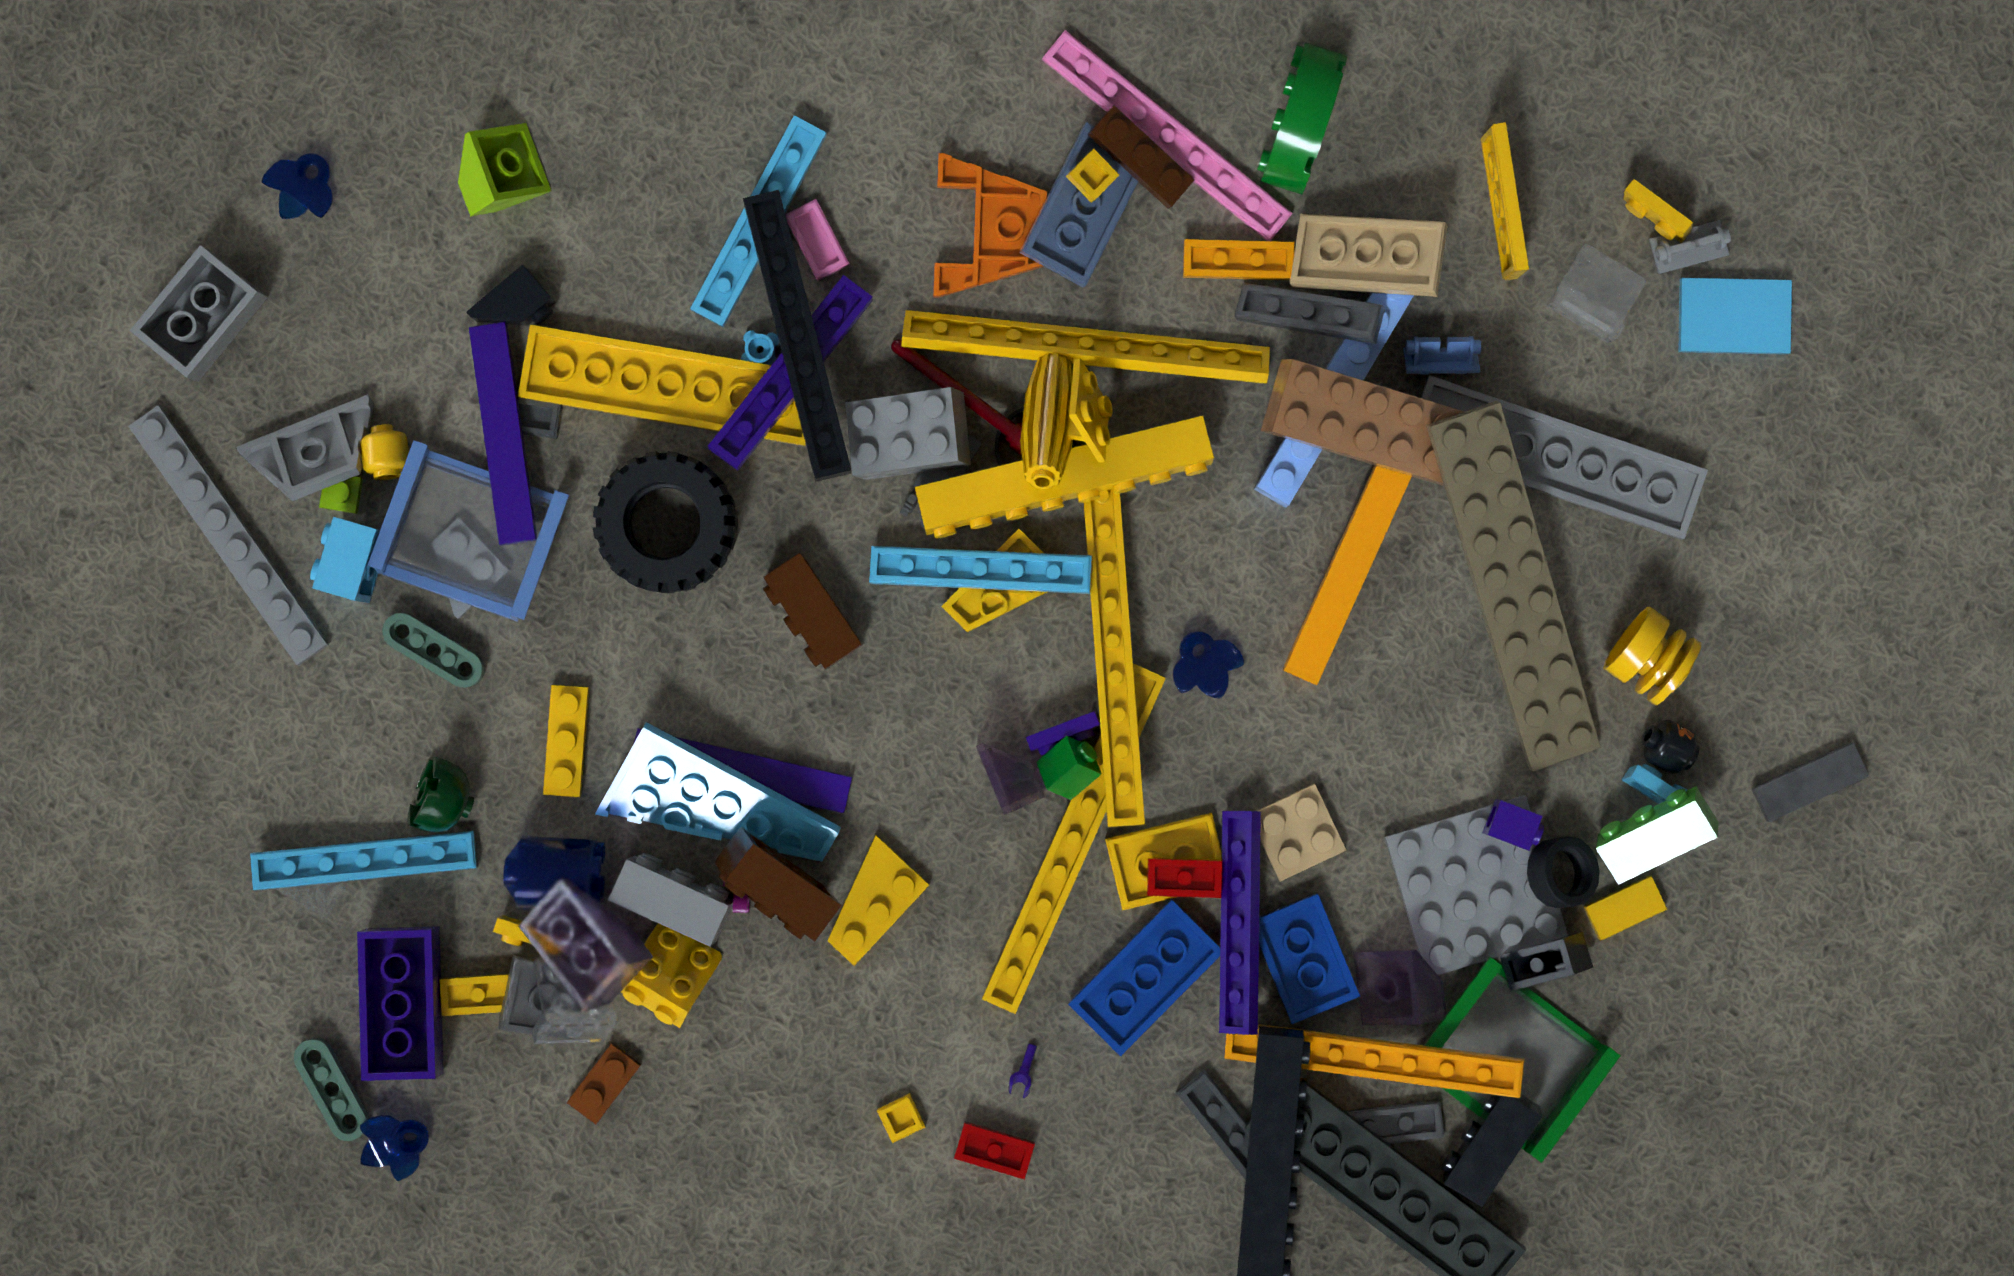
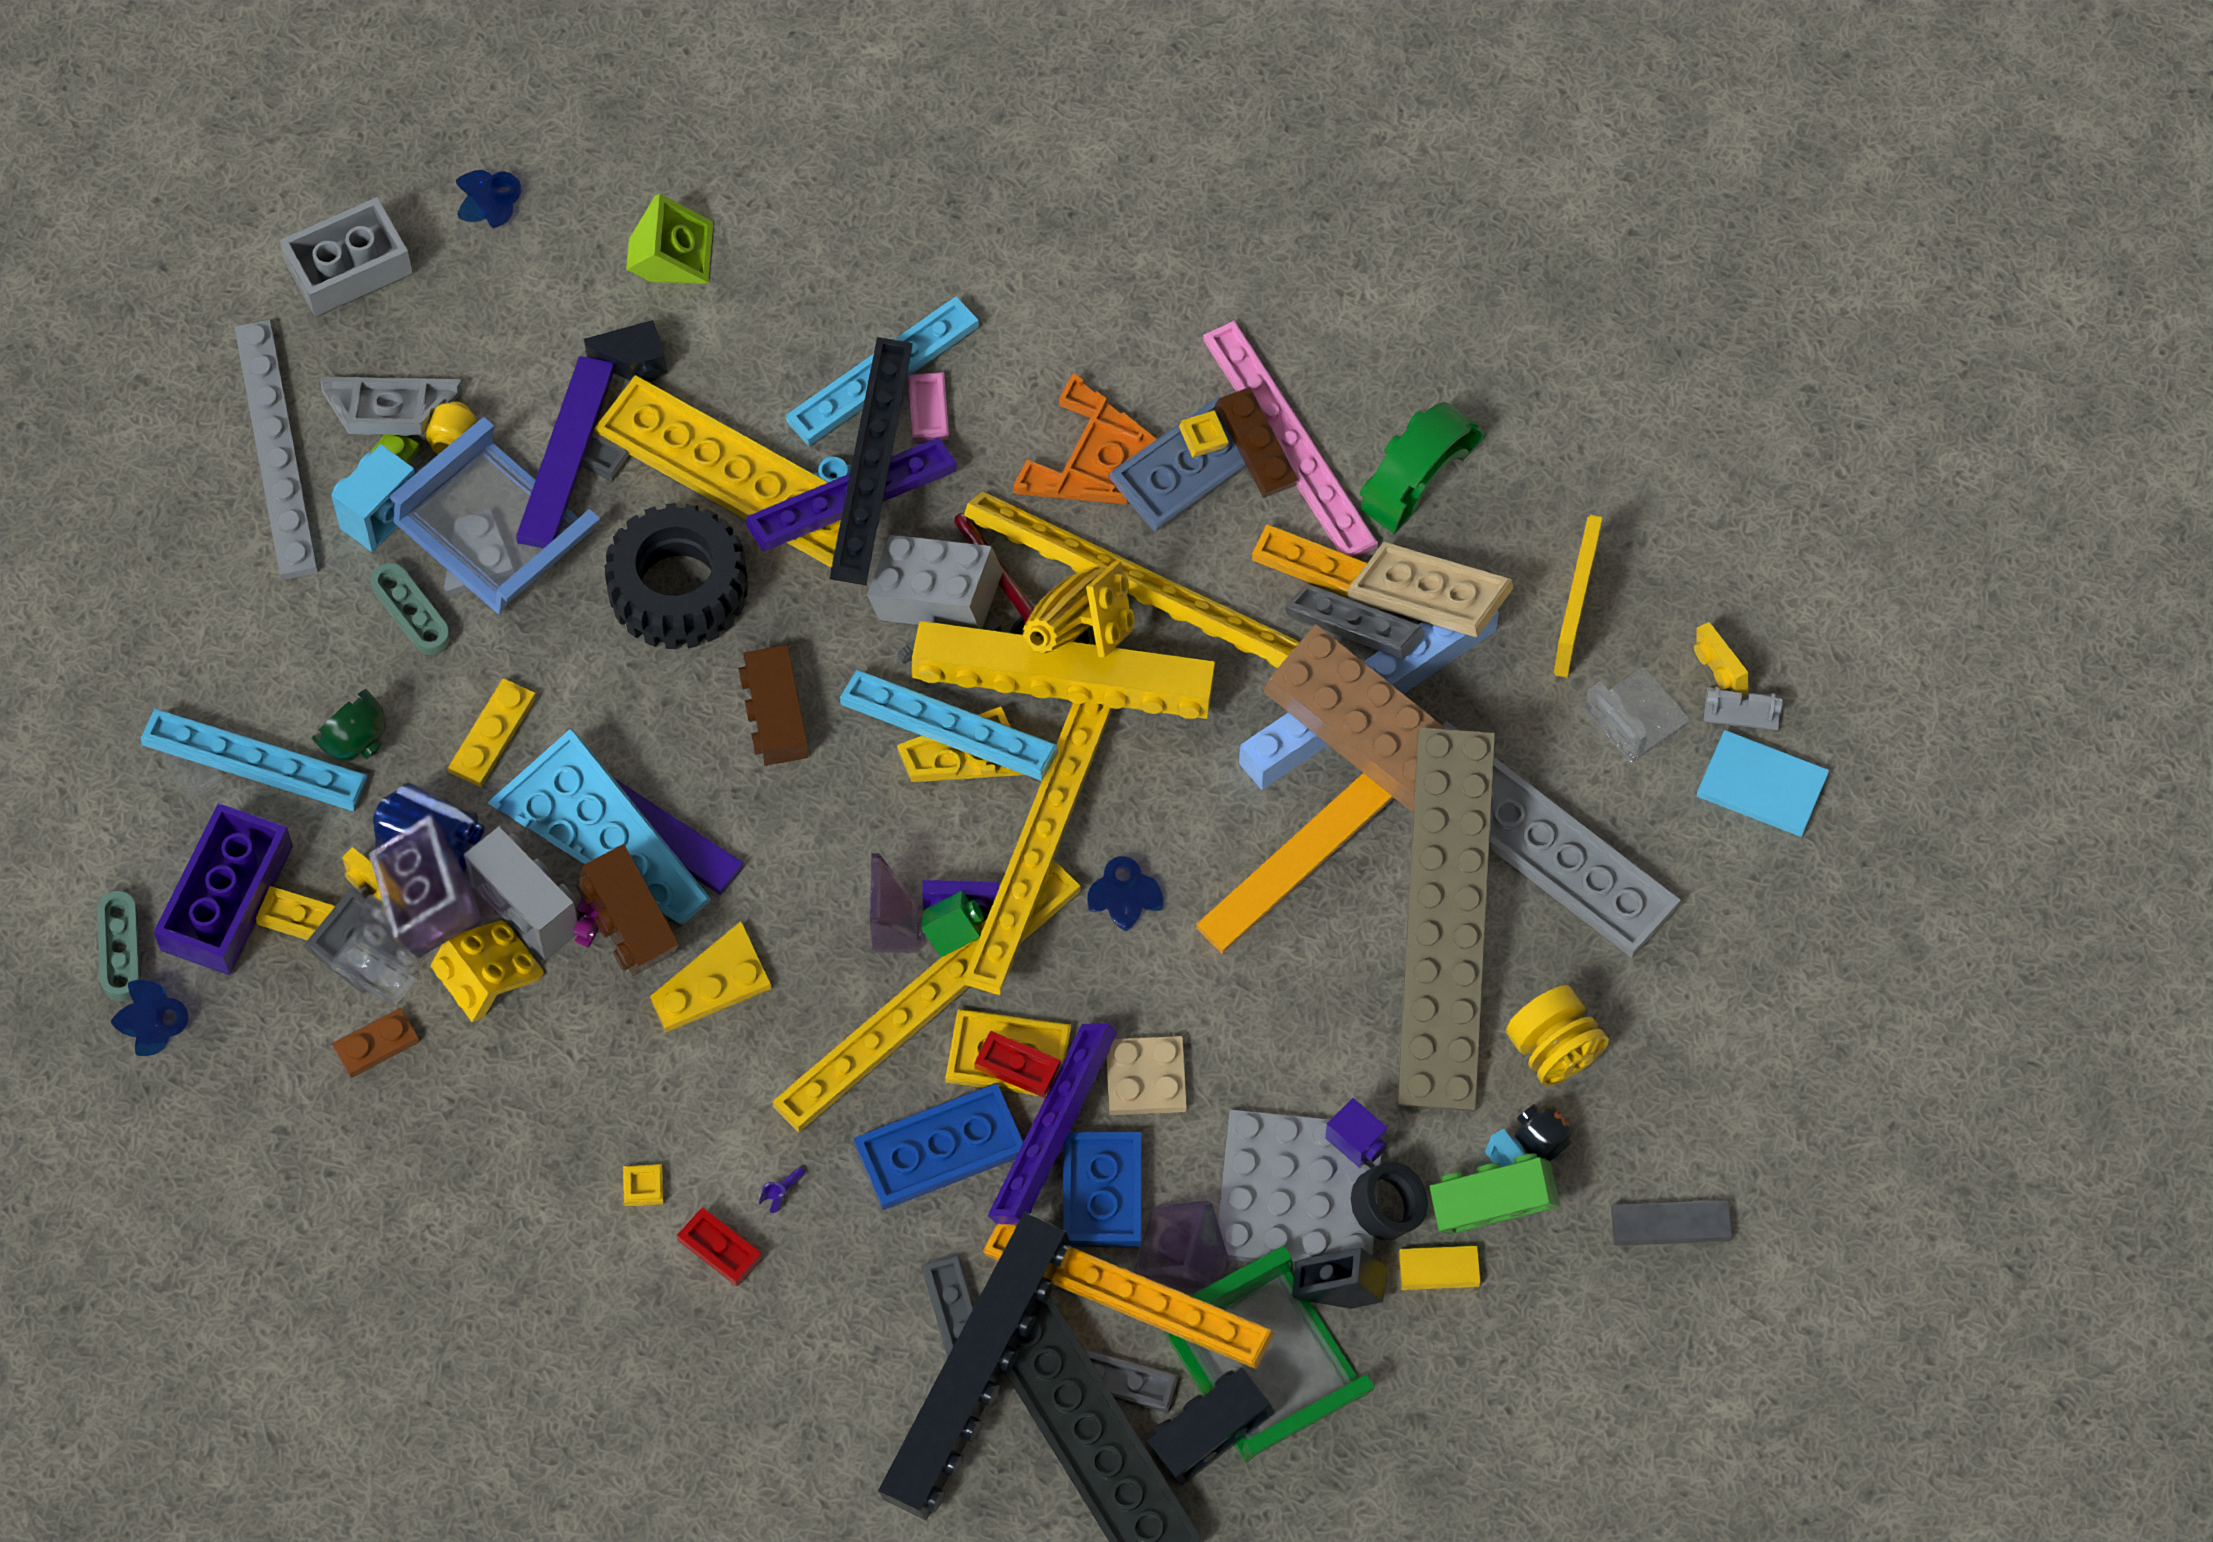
camera: 25 degrees right, 25 degrees down
(1425, 356) = (1452, 707): medium blue hinge -> none

